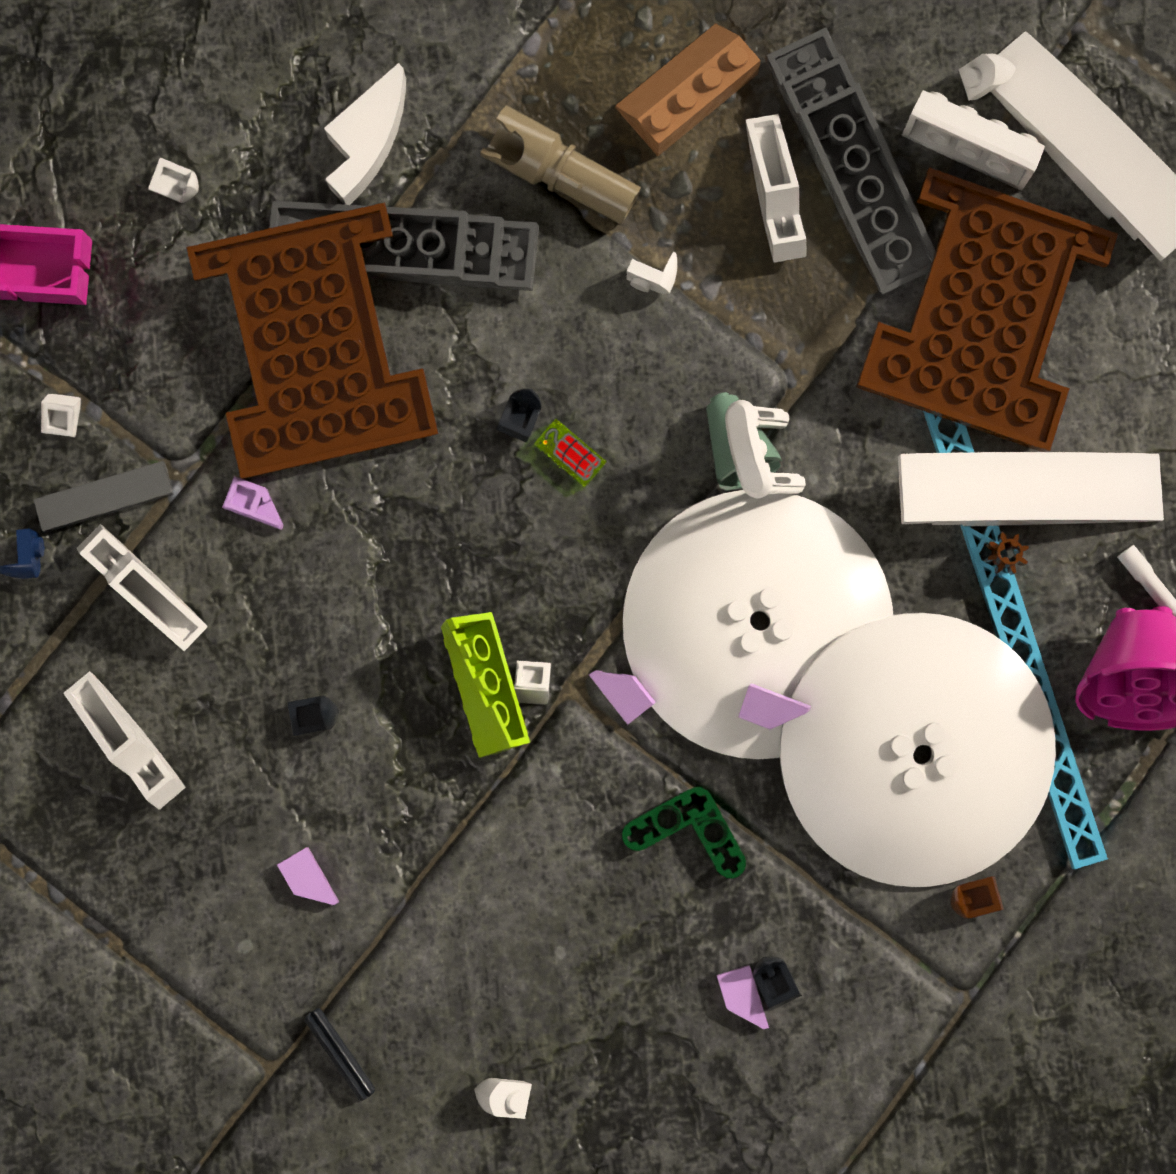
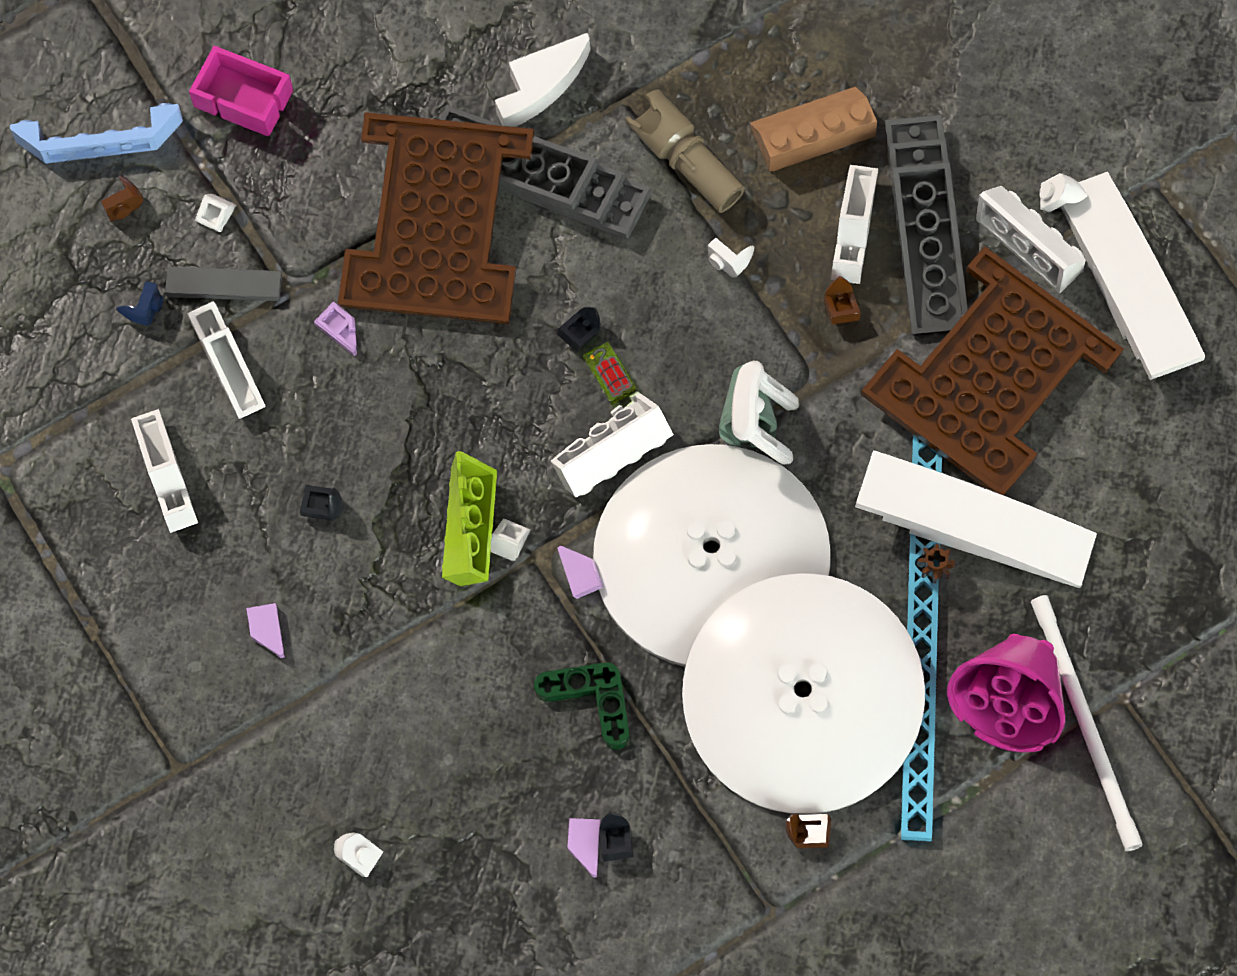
camera: 20 degrees right, 15 degrees down
(174, 181) = (375, 66): white plate -> none
(339, 1054) = (236, 774): black axle -> none
(606, 537) = (612, 445): none -> white wedge
(770, 708) = (691, 613): lavender tile -> none
(794, 286) = (841, 302): none -> reddish brown plate

